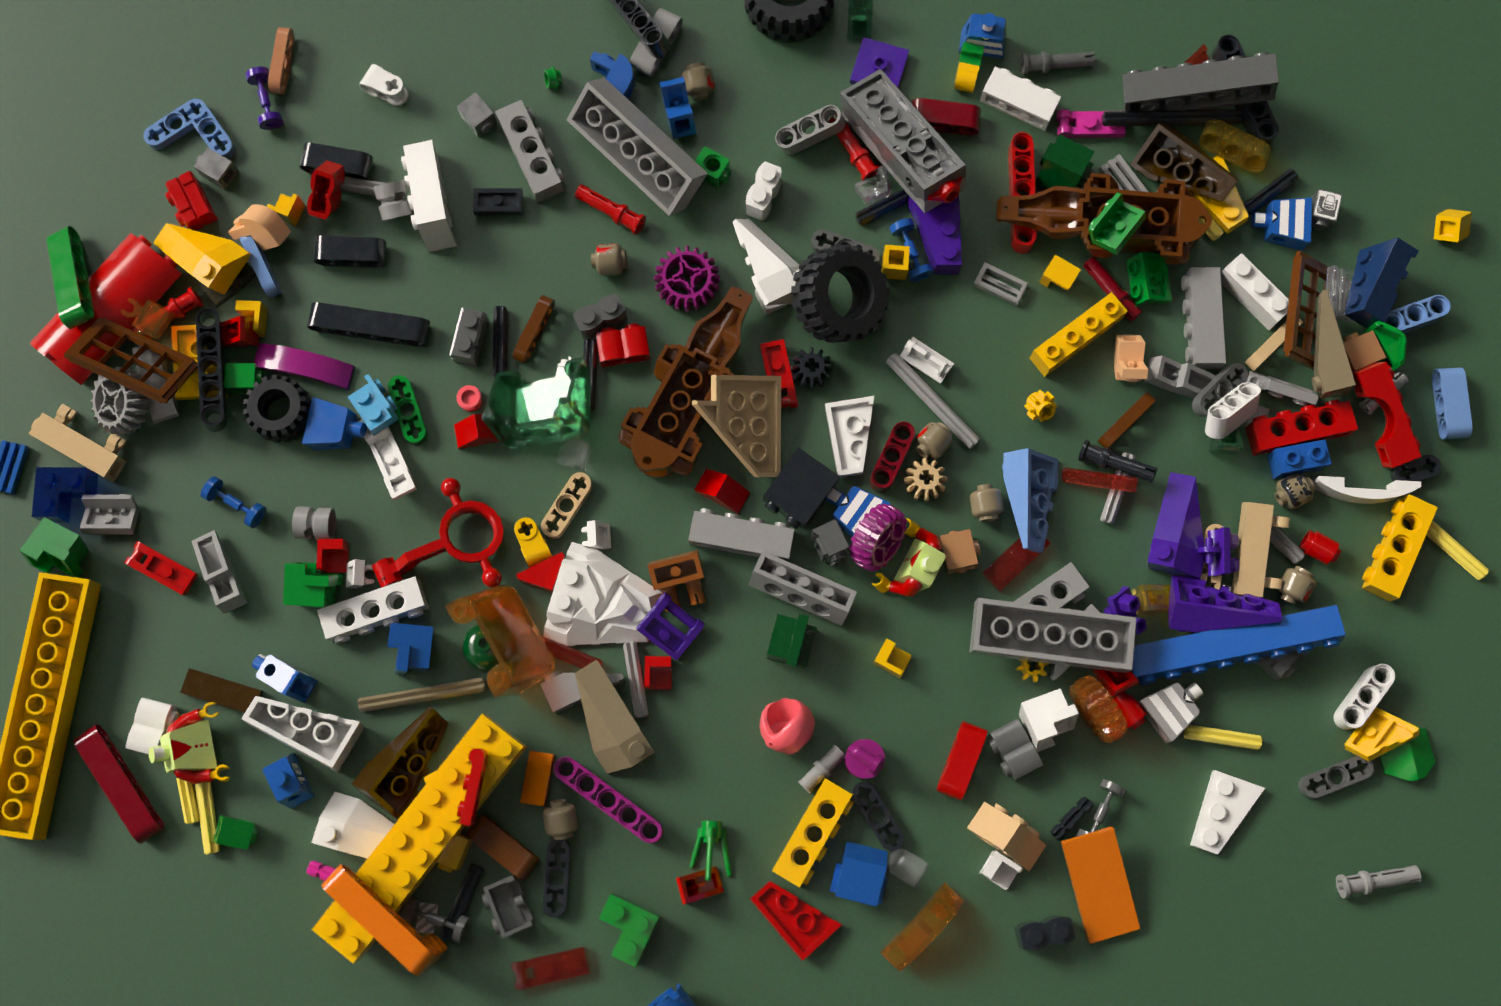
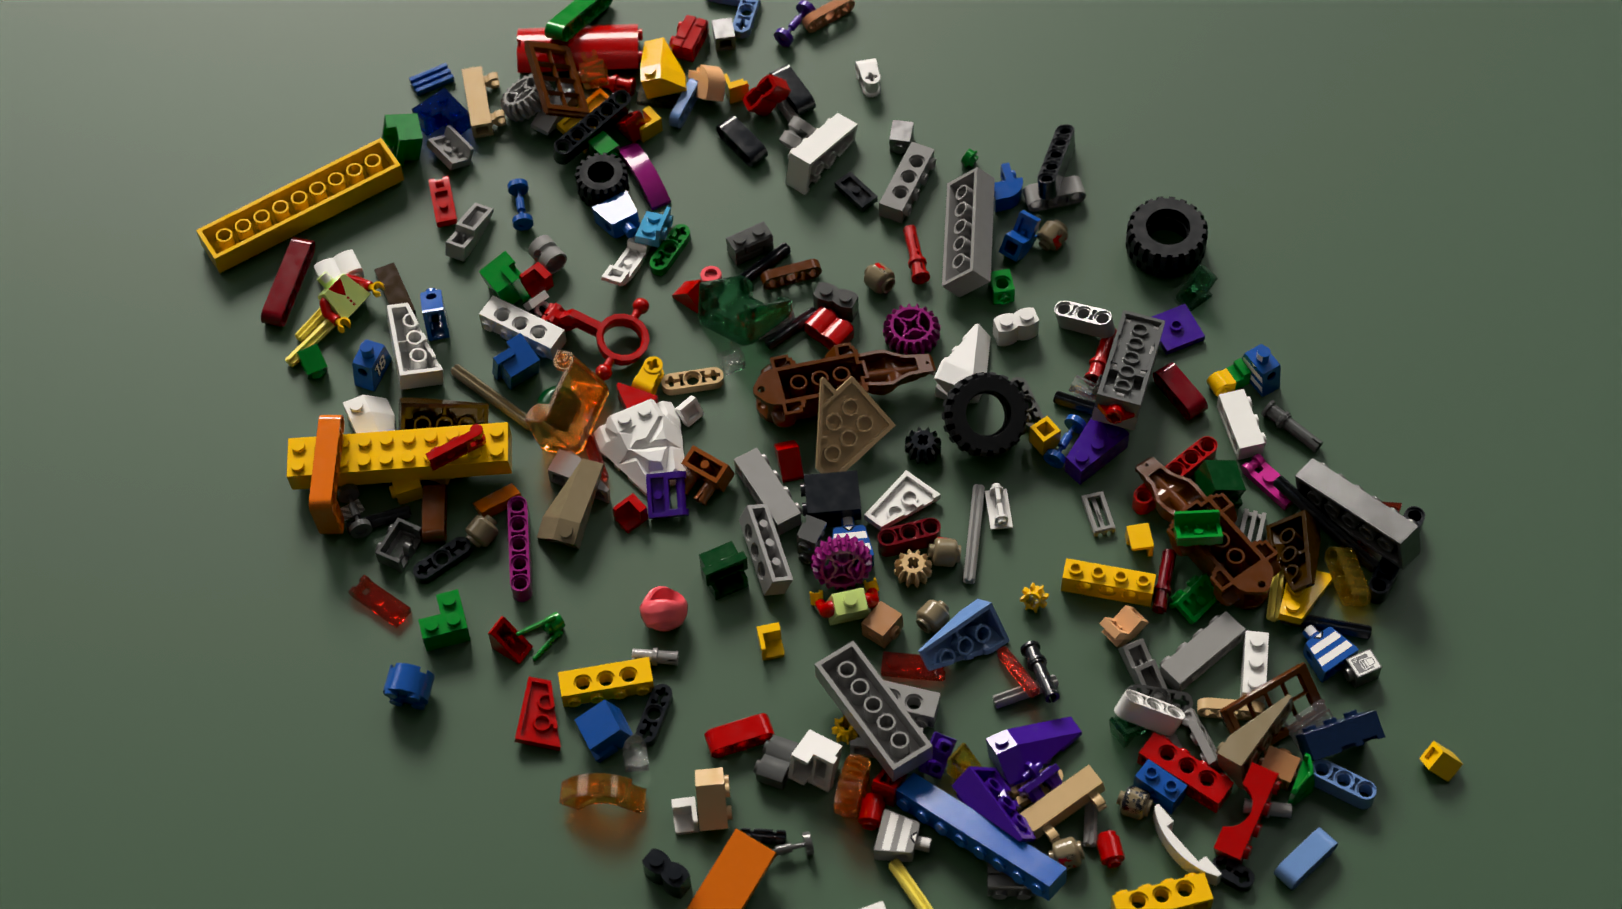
camera: 50 degrees right, 20 degrees down
(368, 324) = (704, 186): black beam -> none
(635, 679) = (606, 513): light grey axle -> none
(777, 364) = (908, 419): red plate -> none
(864, 759) = (685, 674): magenta piece -> none
(1126, 420) = (1079, 659): reddish brown beam -> none

